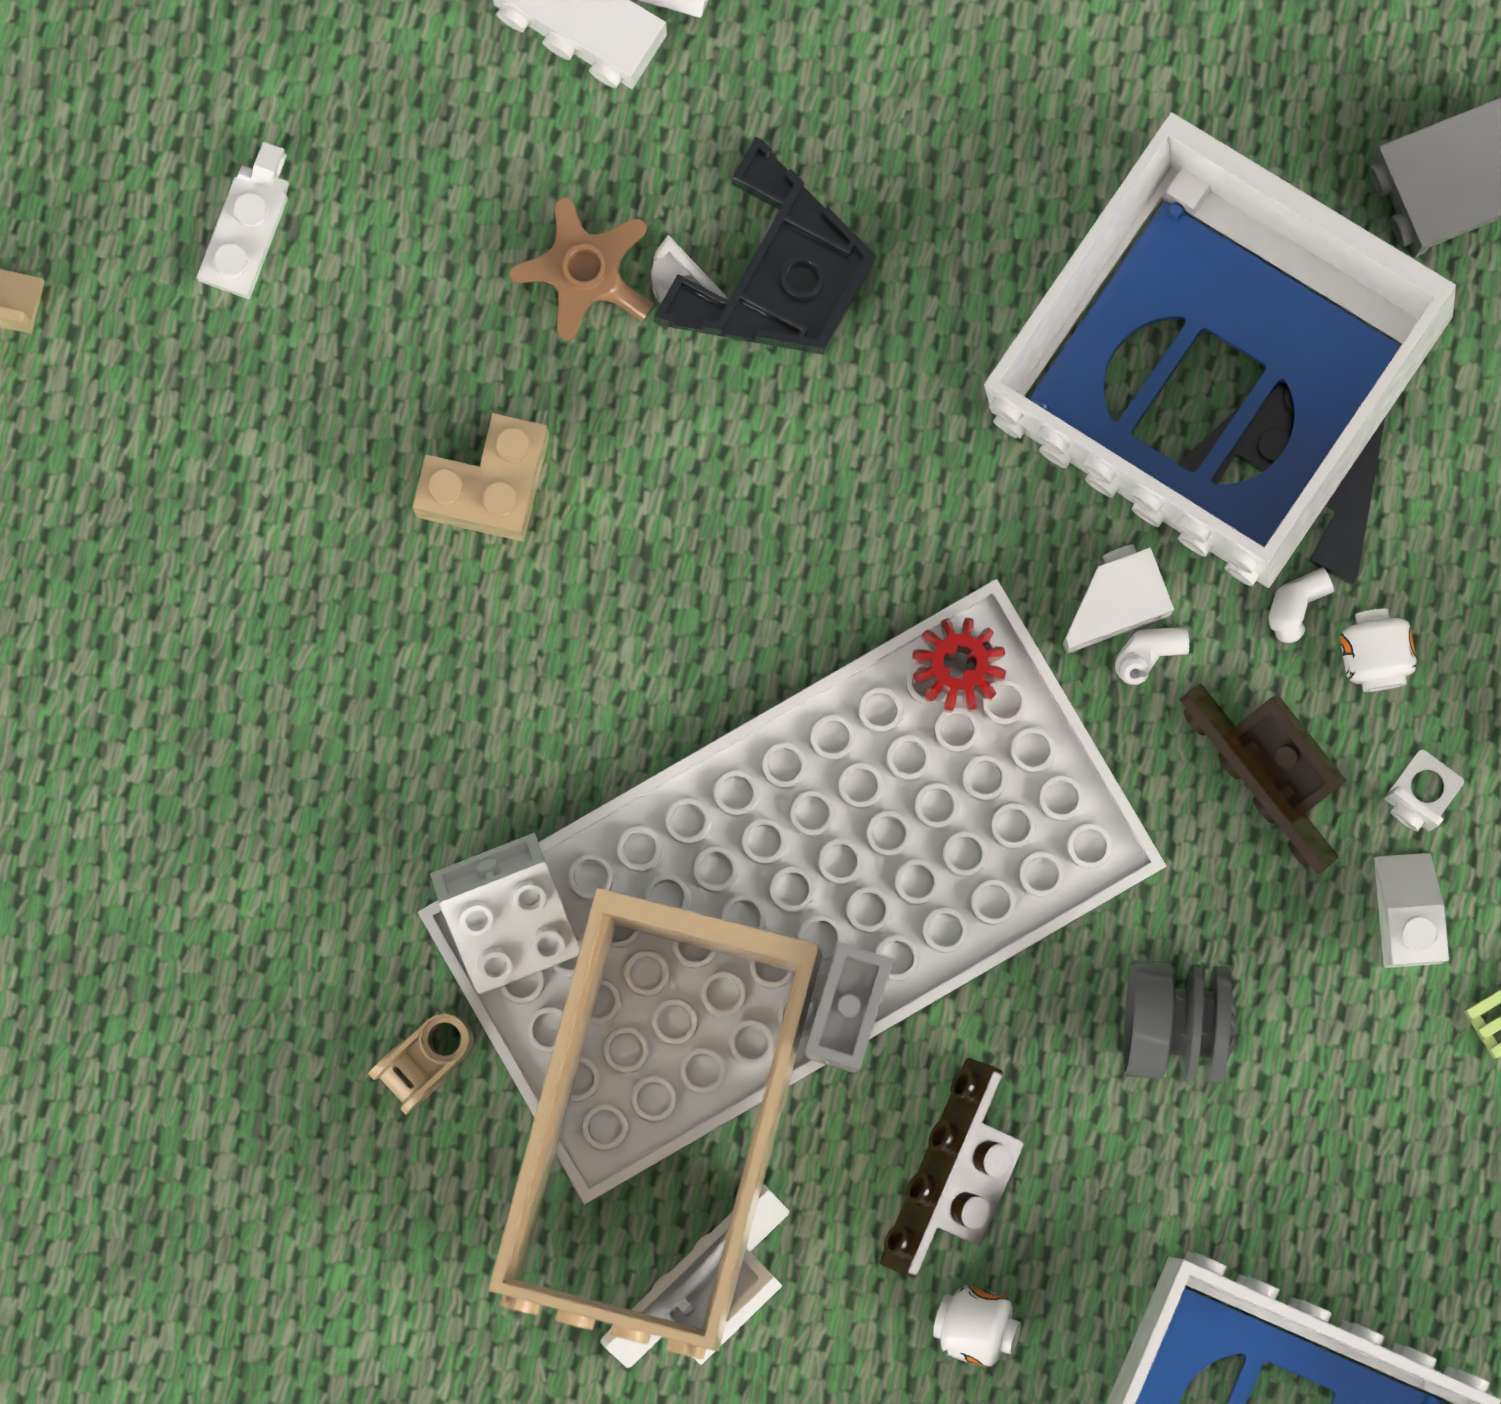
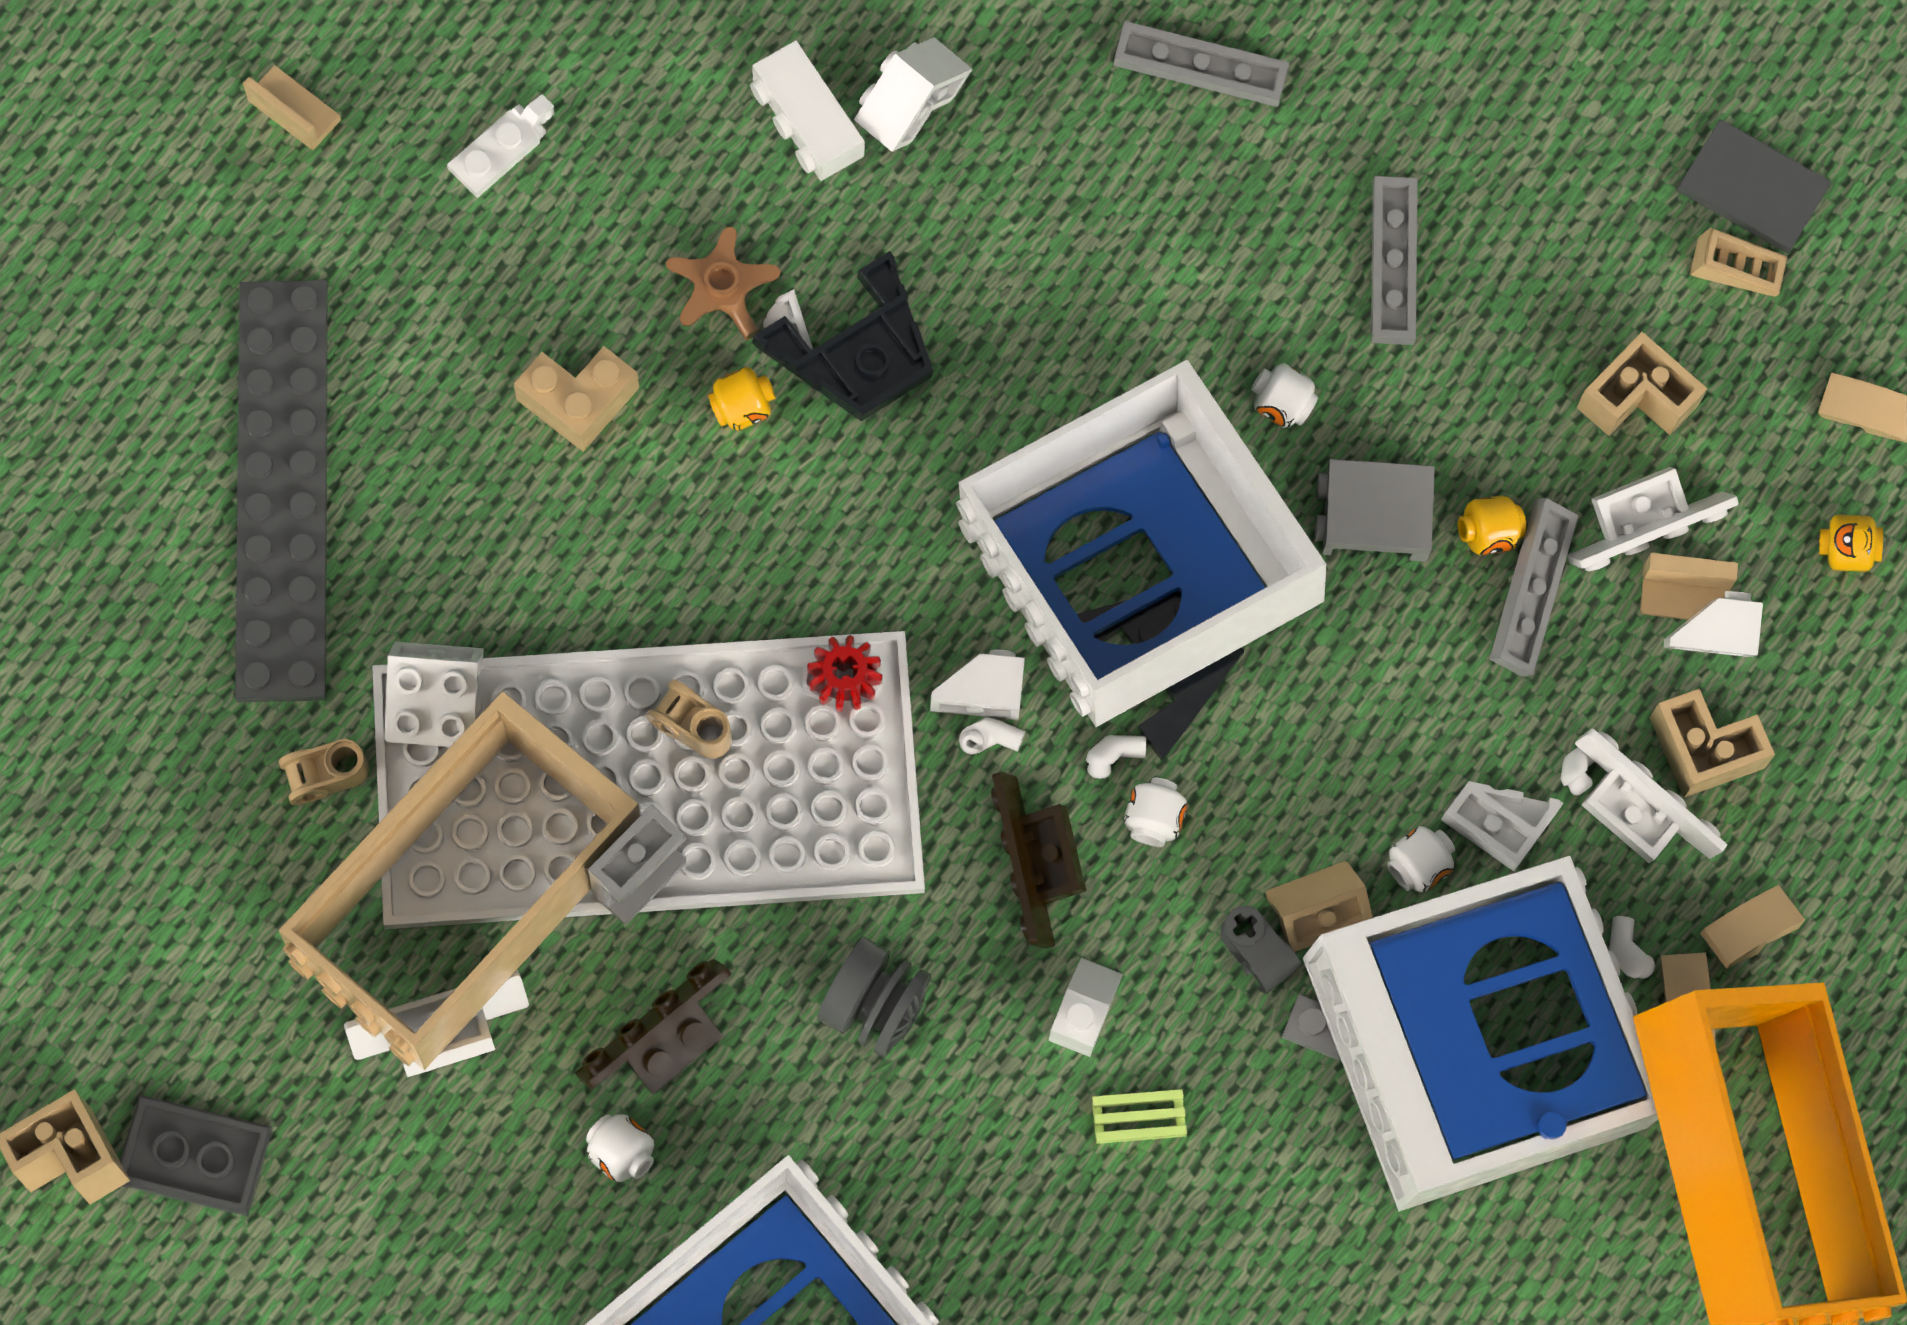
camera: 20 degrees right, 10 degrees down
(206, 754) = (282, 492): none -> dark grey plate
(676, 395) = (741, 399): none -> yellow head
(809, 803) = (685, 714): none -> tan piece
(1287, 92) = (1284, 395): none -> white head
(1414, 812) = (1121, 929): white bracket -> none

